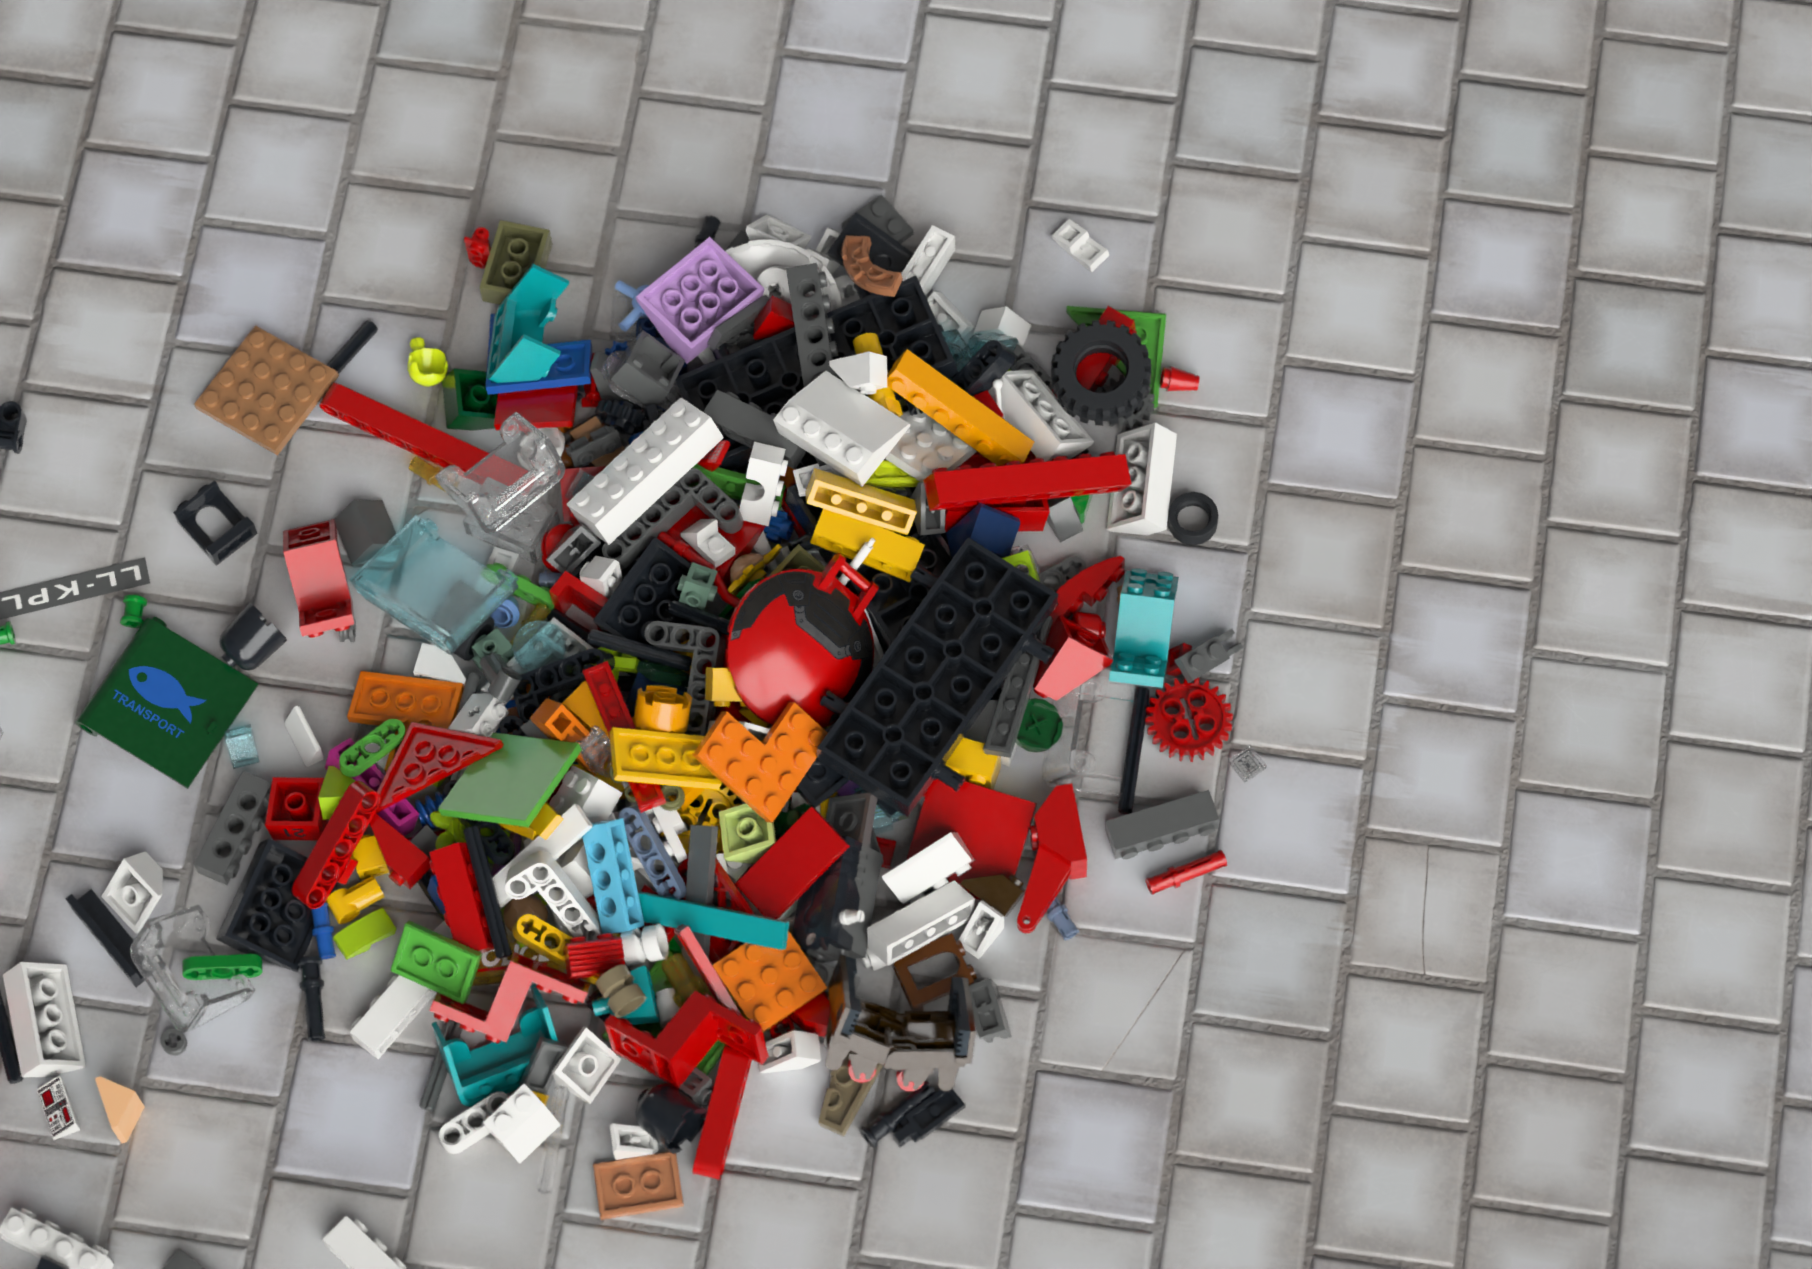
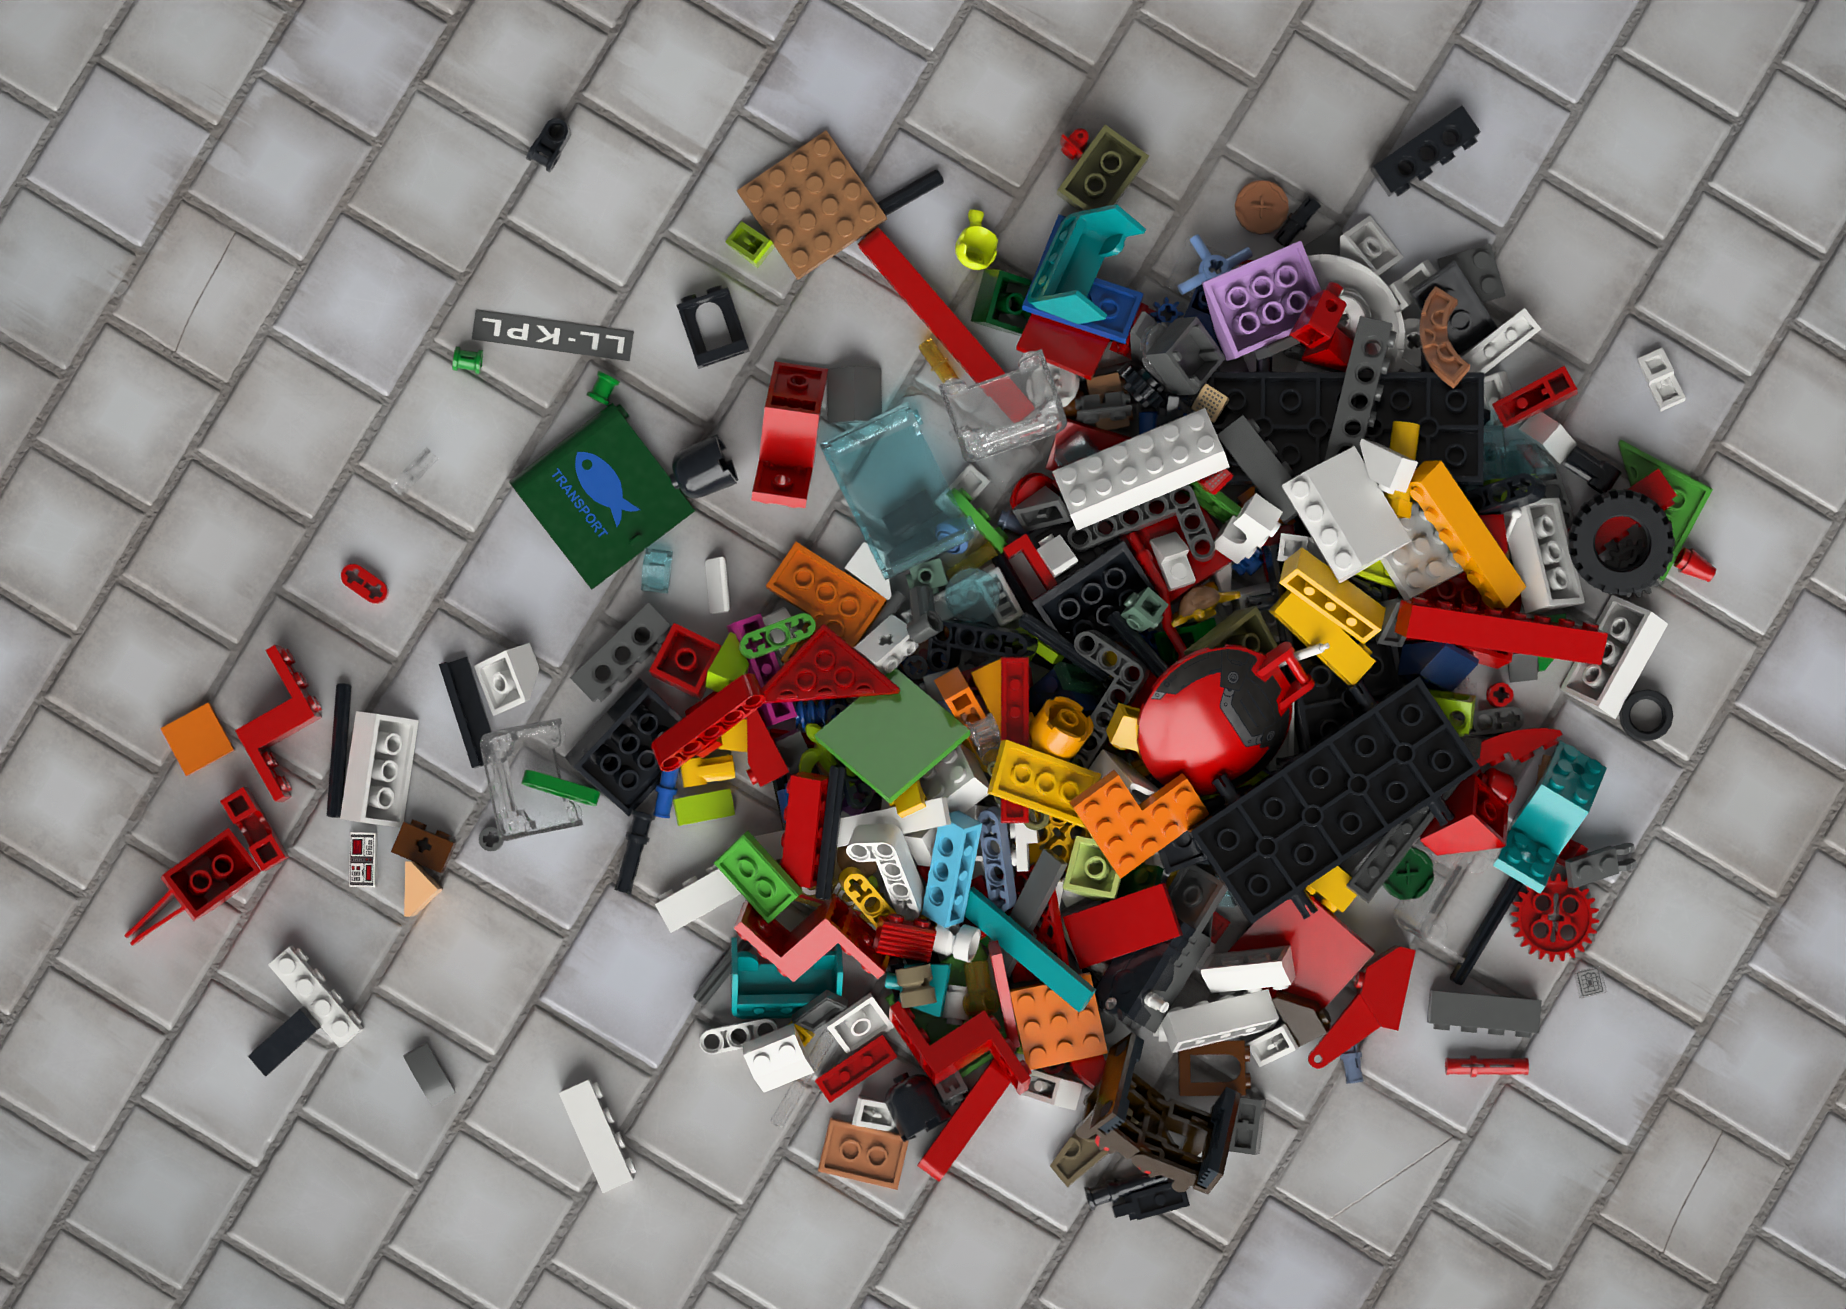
camera: 25 degrees right, 20 degrees up
(99, 1061) = (407, 846): none -> reddish brown brick
(225, 442) = (750, 244): none -> lime slope
(599, 1108) = (856, 1068): none -> red plate
(668, 242) = (1261, 207): none -> nougat tile
(688, 391) = (1212, 401): none -> tan slope
(752, 276) = (1320, 316): none -> red torso
(809, 111) = (1457, 122): none -> black brick
(977, 294) = (1535, 397): none -> red slope
(1047, 336) = (1598, 474): none -> black piece
(1057, 544) = (1494, 700): none -> red bush

